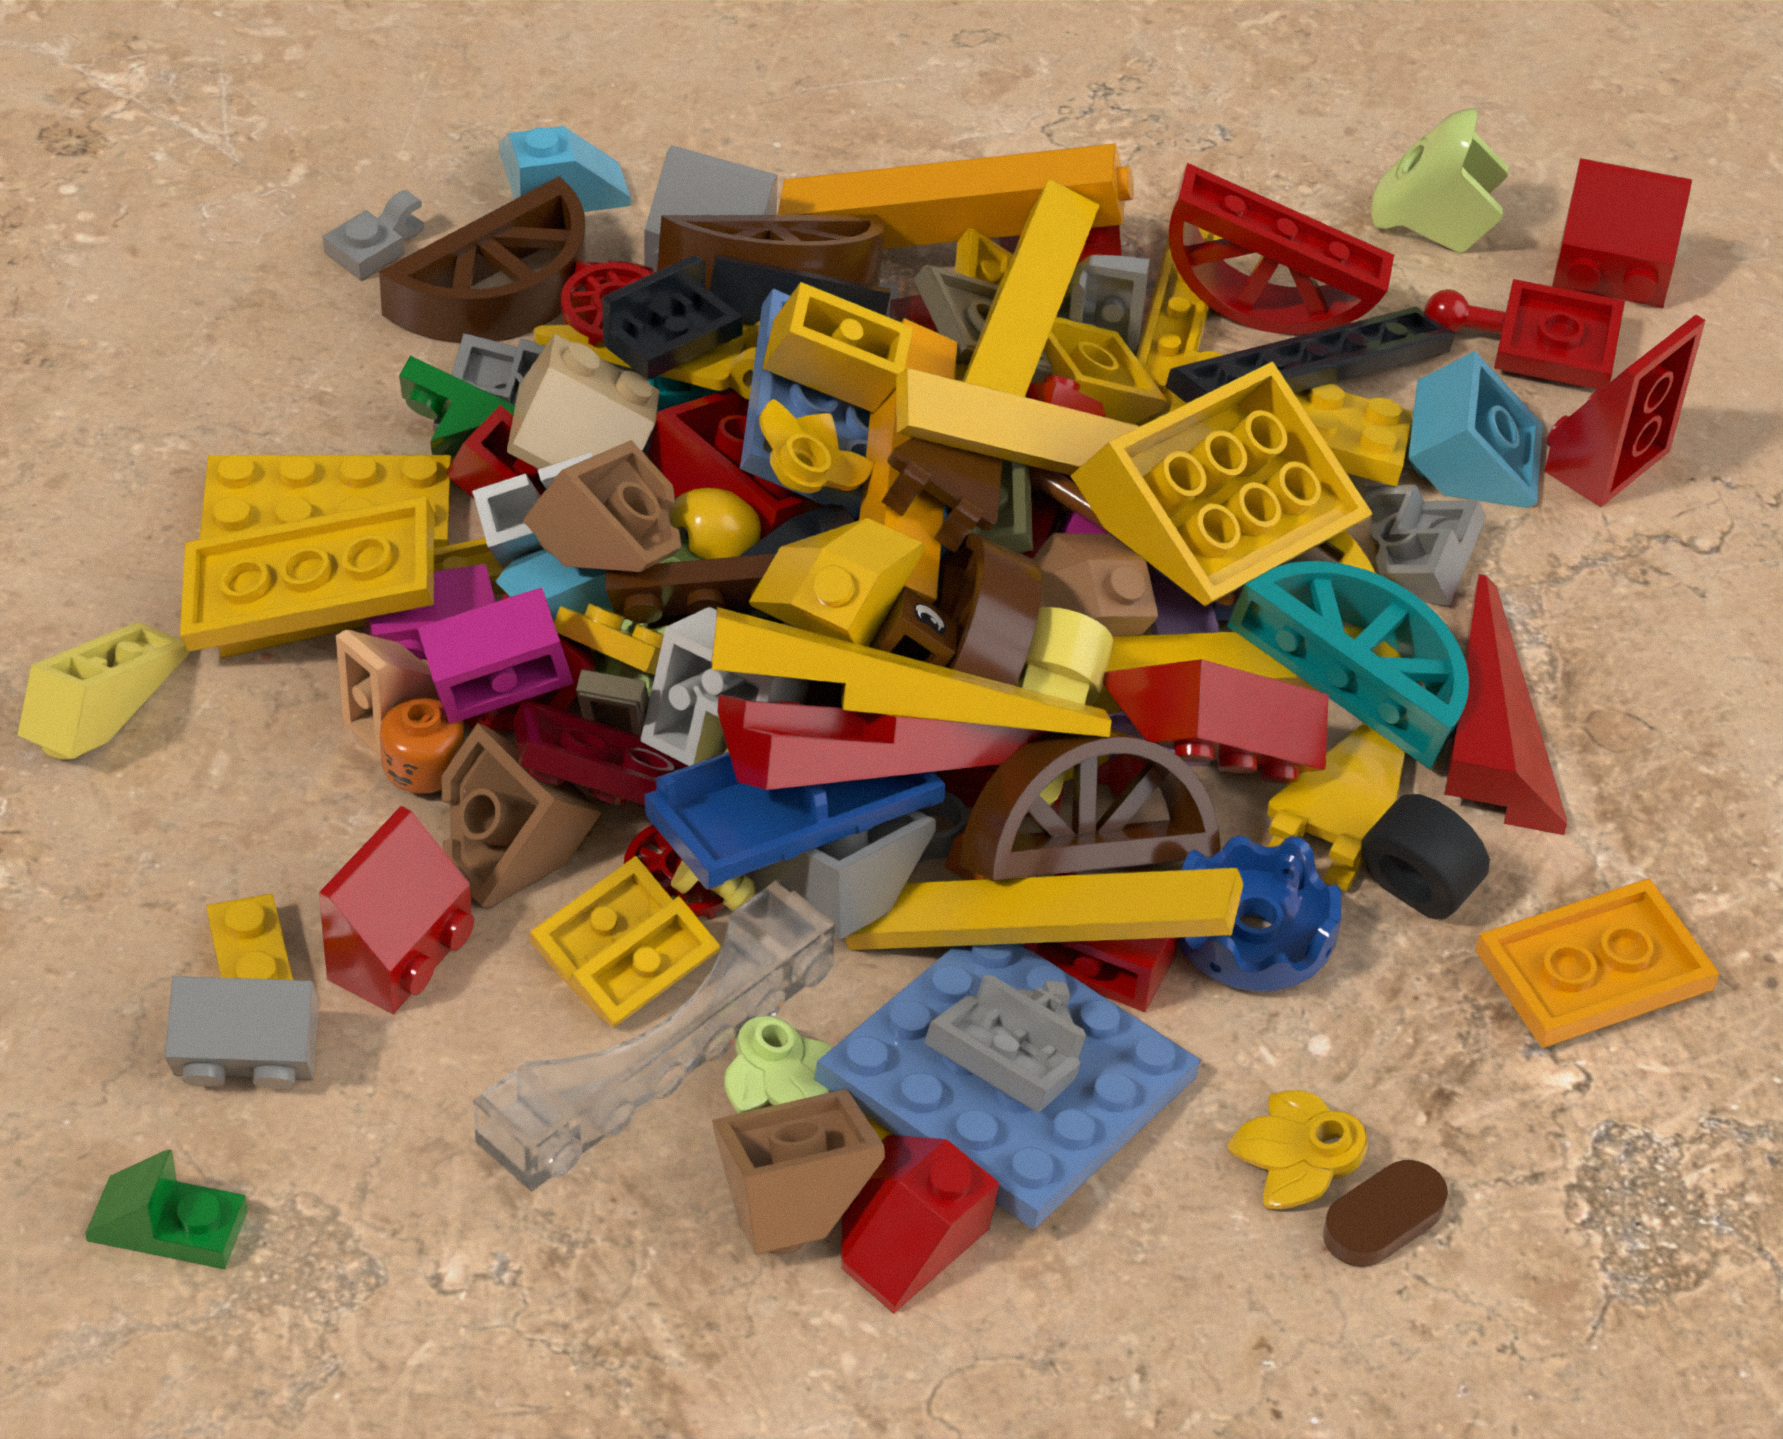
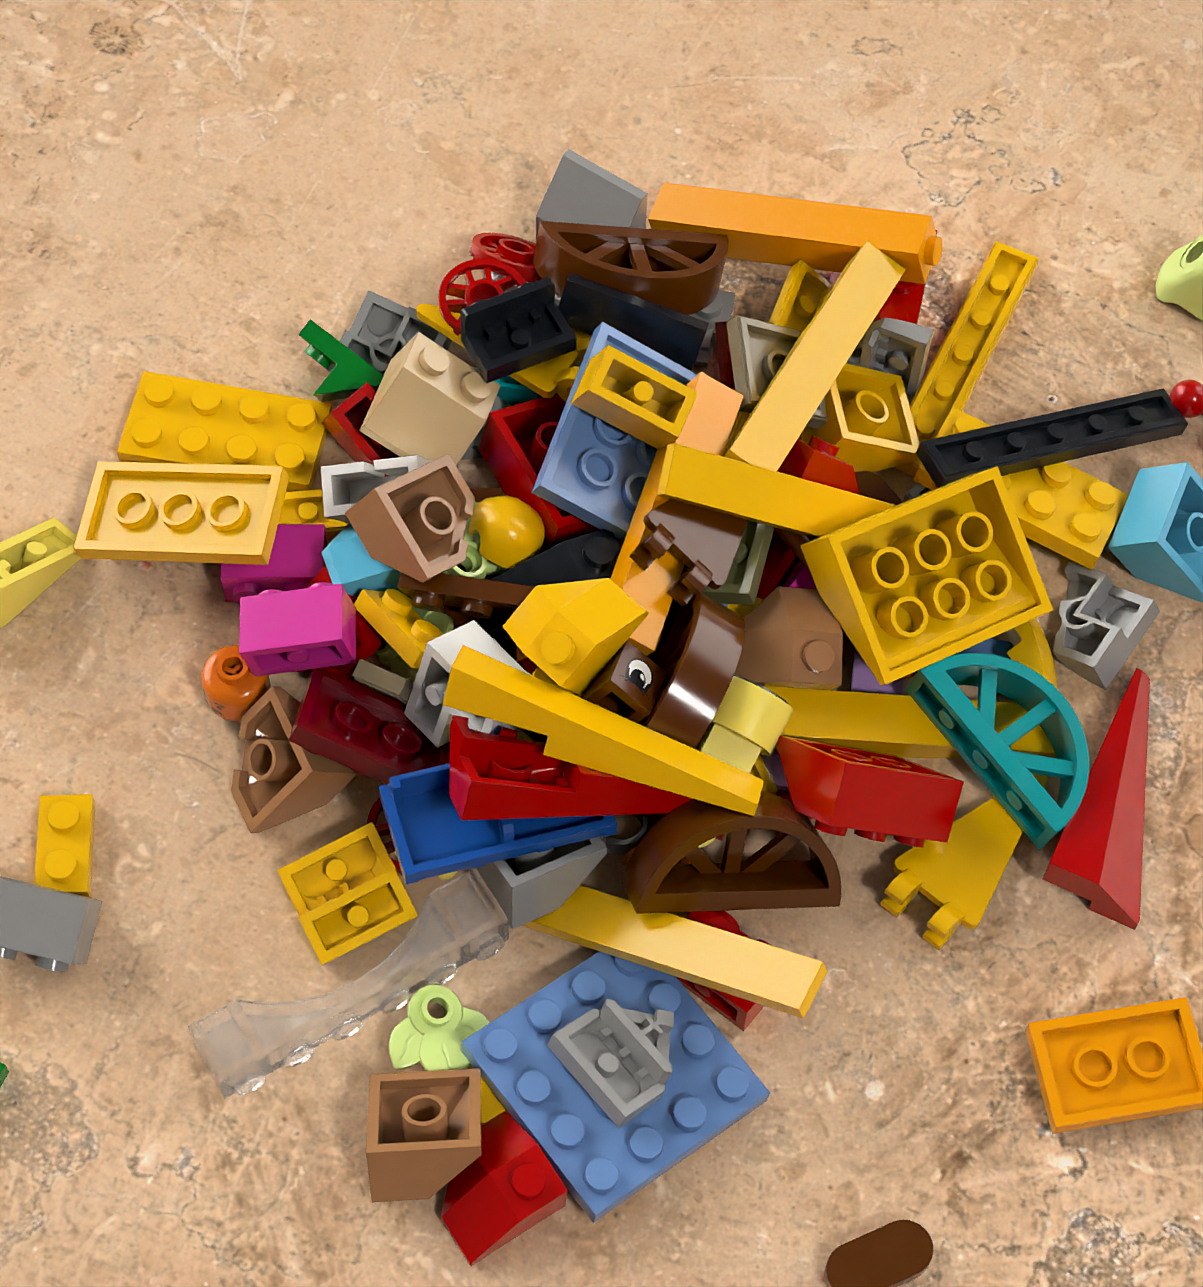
camera: 15 degrees right, 15 degrees up
(371, 242) = (325, 181): light grey plate -> none
(376, 678) = (211, 617): light nougat slope -> none
(393, 914) = (173, 841): slope -> none
(433, 286) = (373, 221): reddish brown window -> none
(546, 153) = (491, 138): medium azure slope -> none
(808, 453) = (593, 486): yellow plate -> none
(1249, 223) = (1045, 334): red window -> none
(1282, 891) = (876, 940): blue plate -> none
(1293, 1147) = (818, 1187): yellow plate -> none
(1425, 855) = (1004, 943): black tyre -> none

